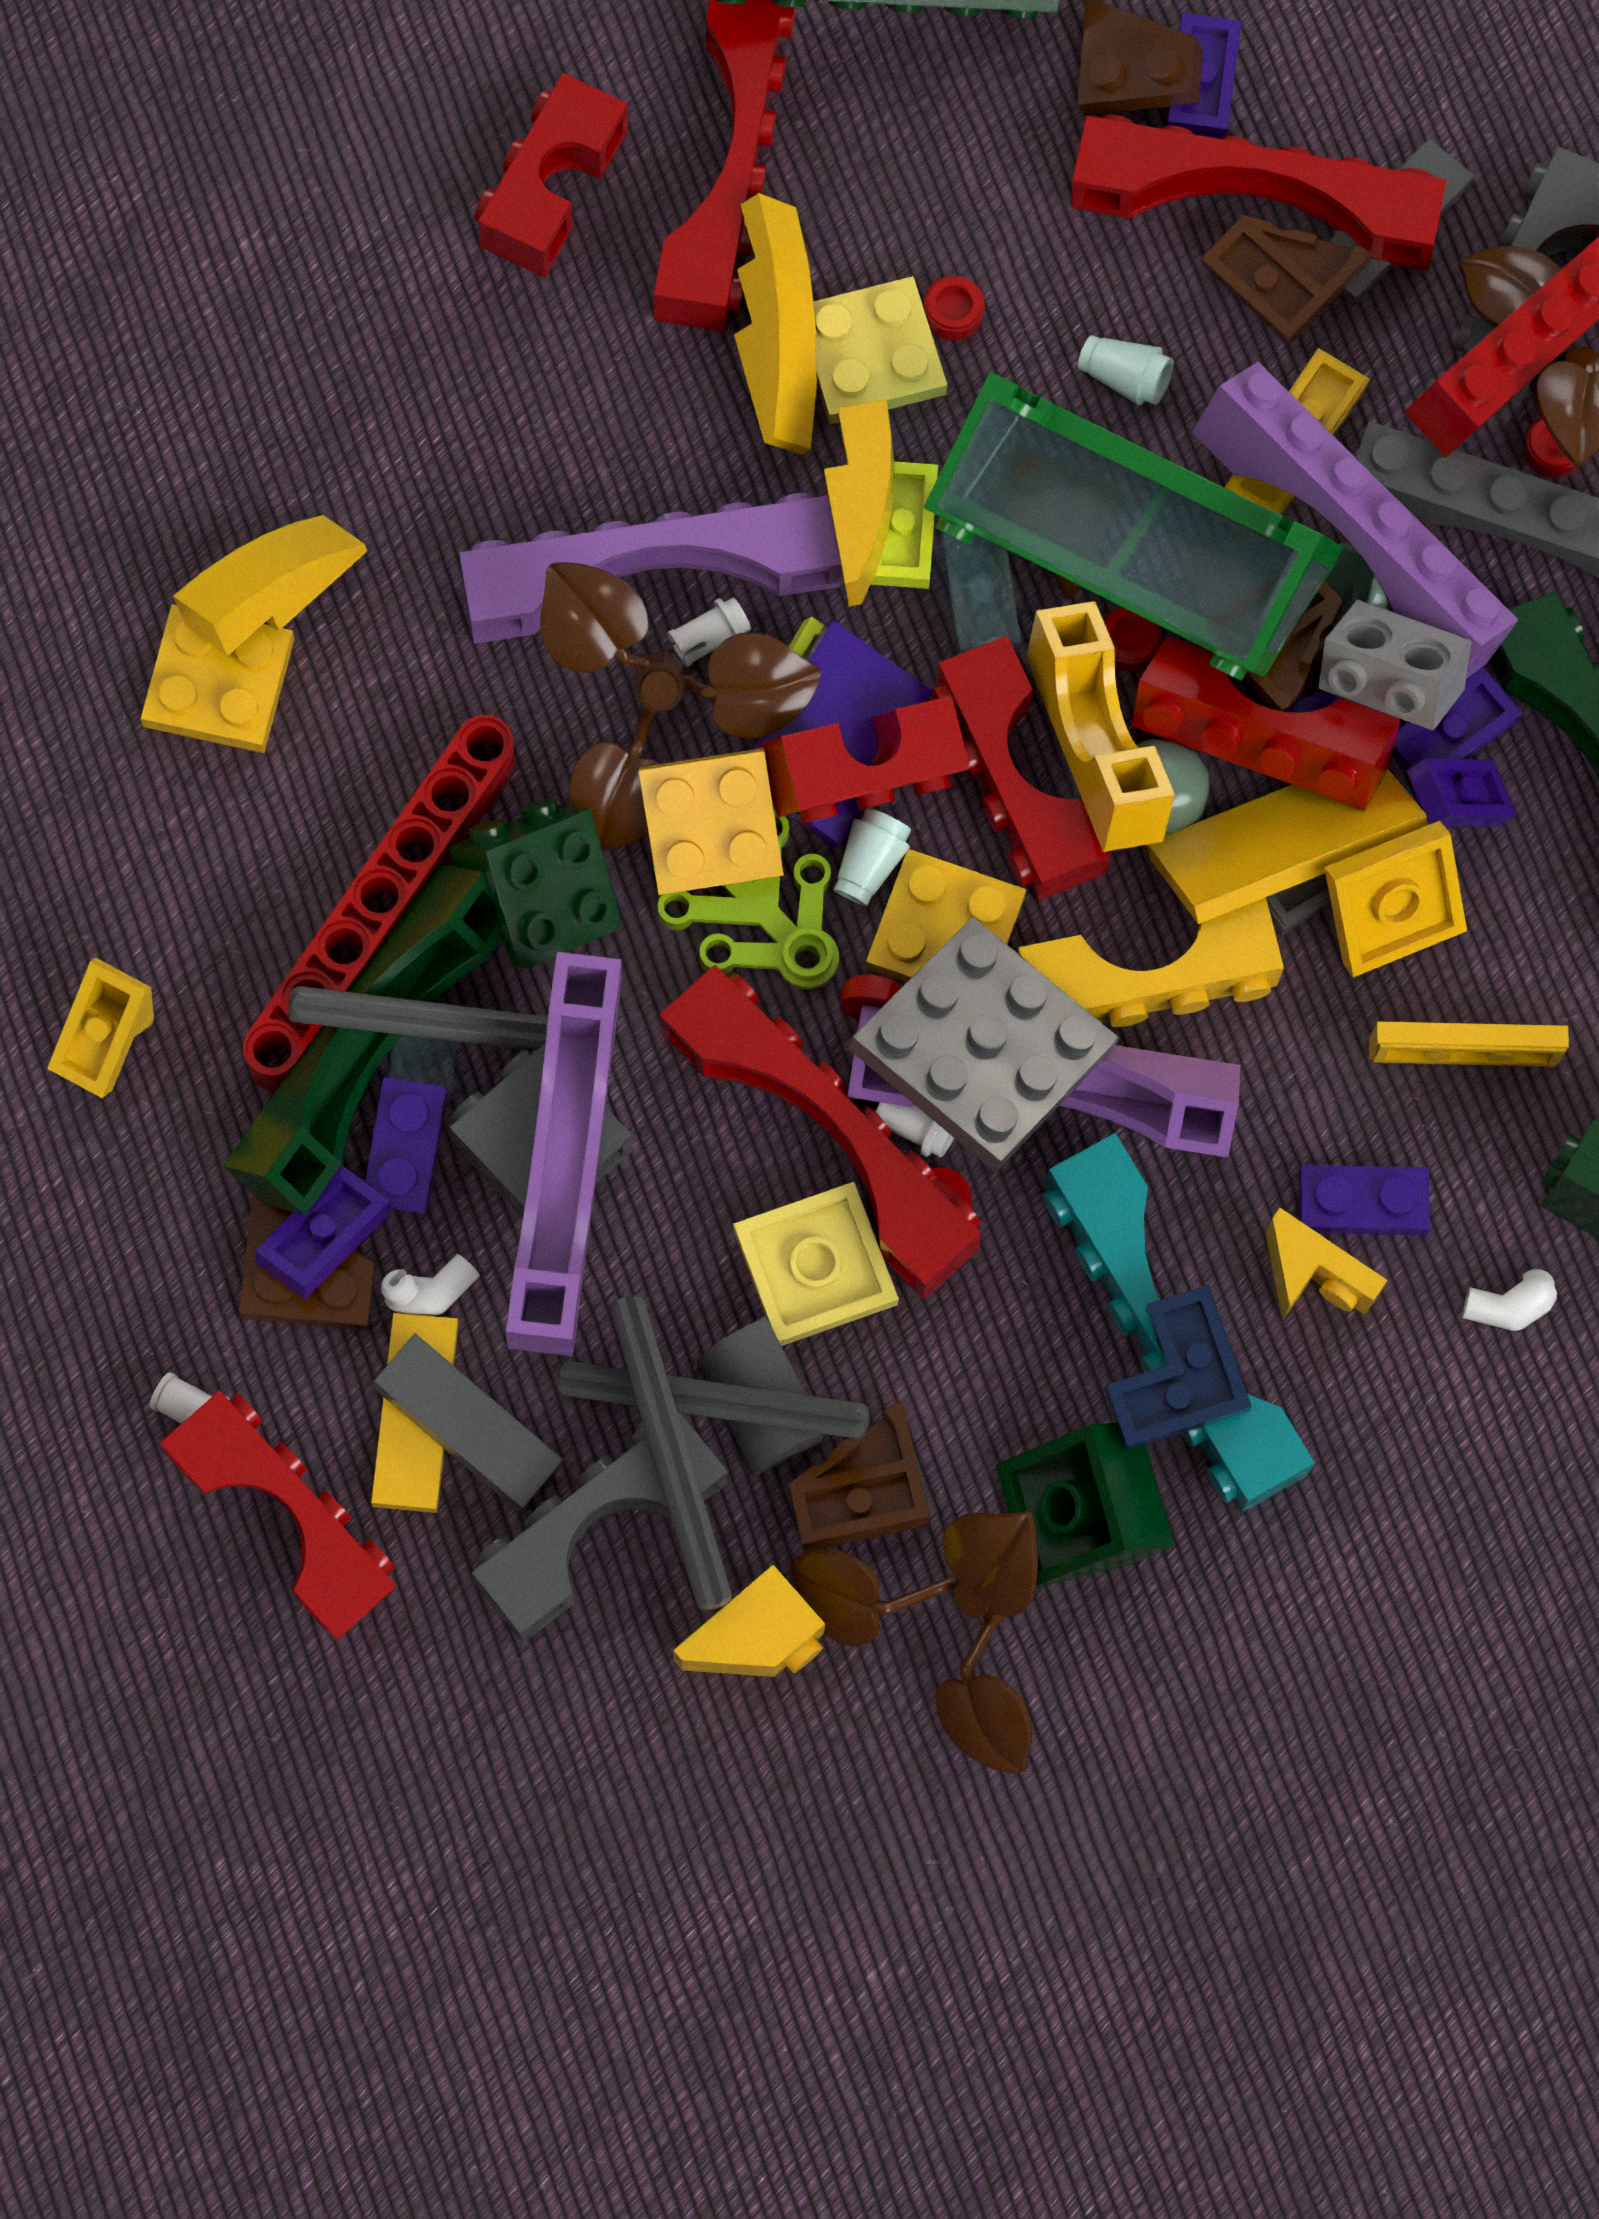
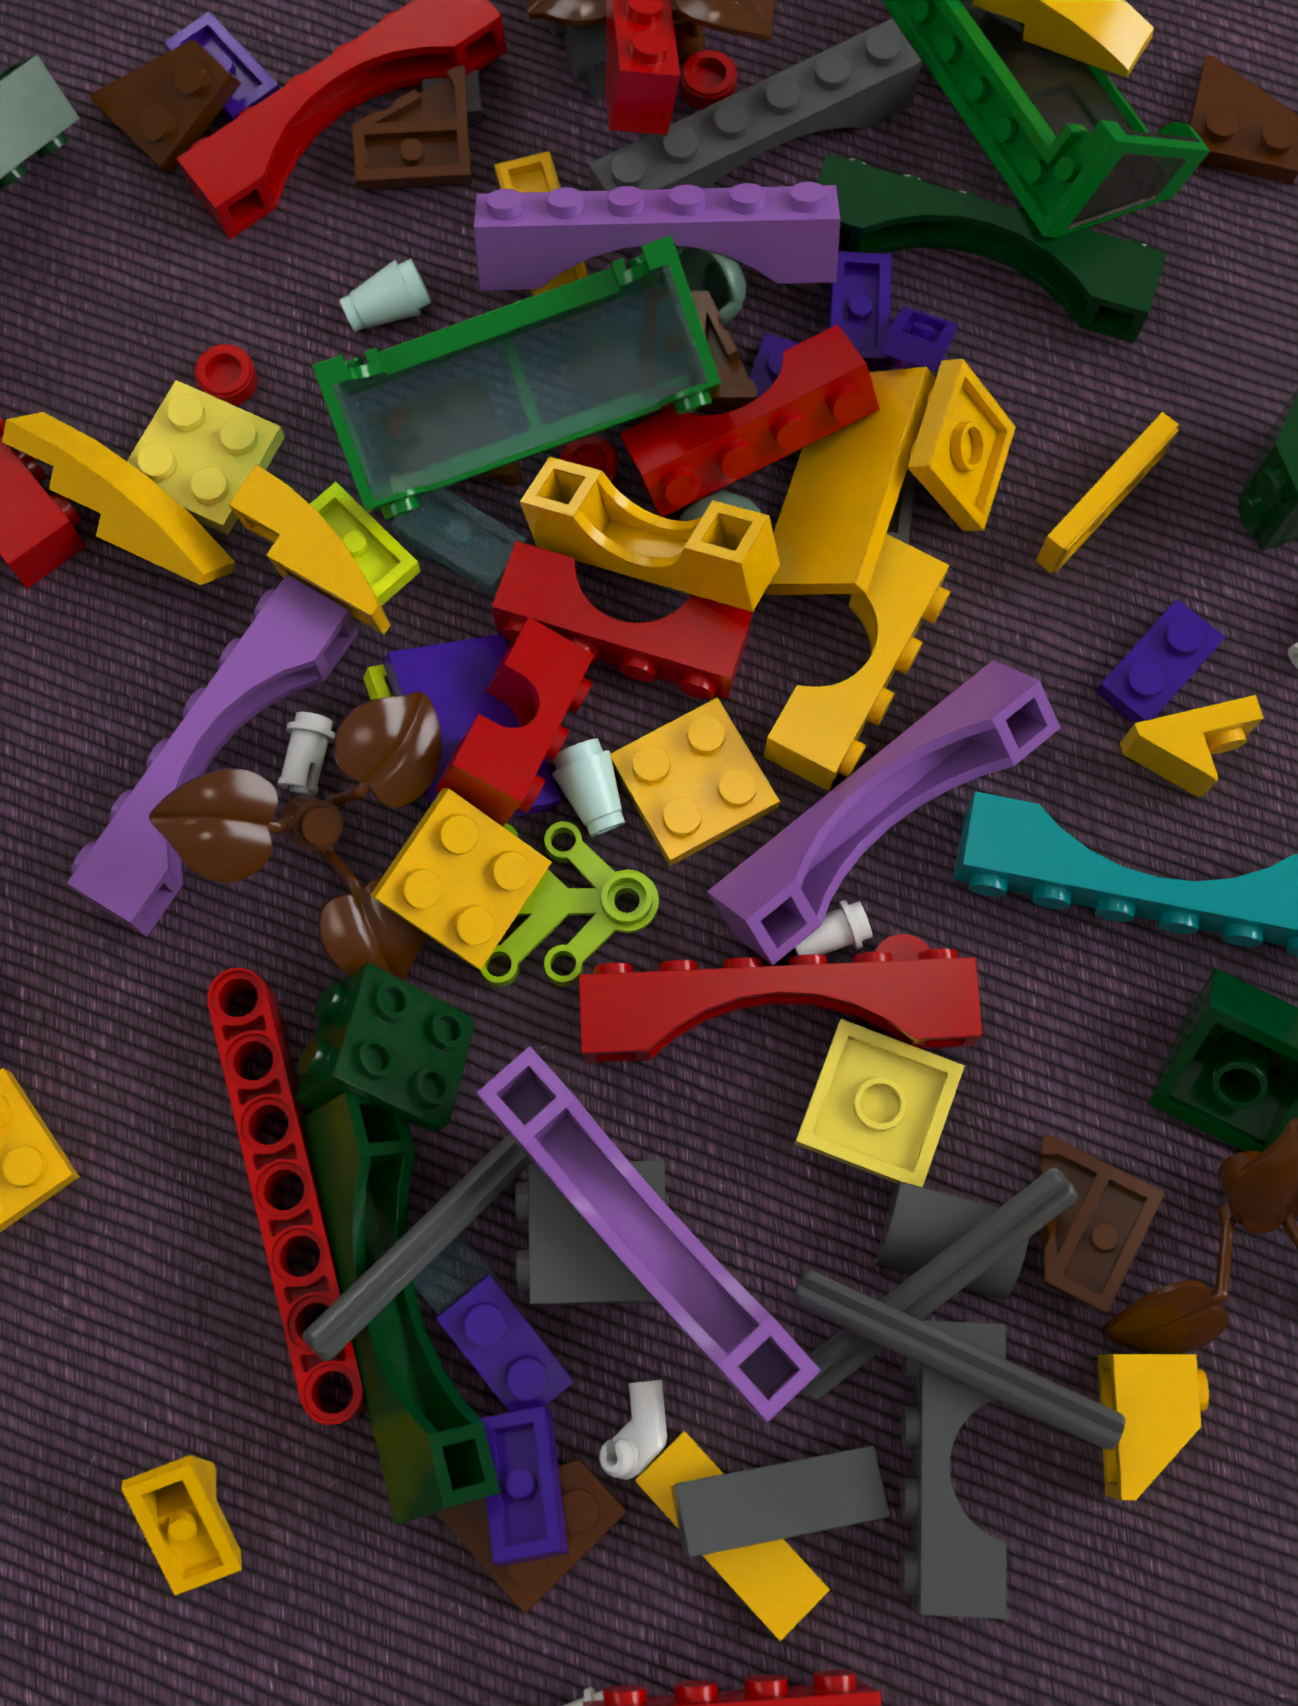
camera: 45 degrees left, 0 degrees up
(867, 991) = (700, 877): red tile -> none
(983, 1043) = (832, 827): plate -> none
(1195, 1384) = (1236, 899): dark blue plate -> none
(1395, 664) = (795, 292): light grey brick -> none

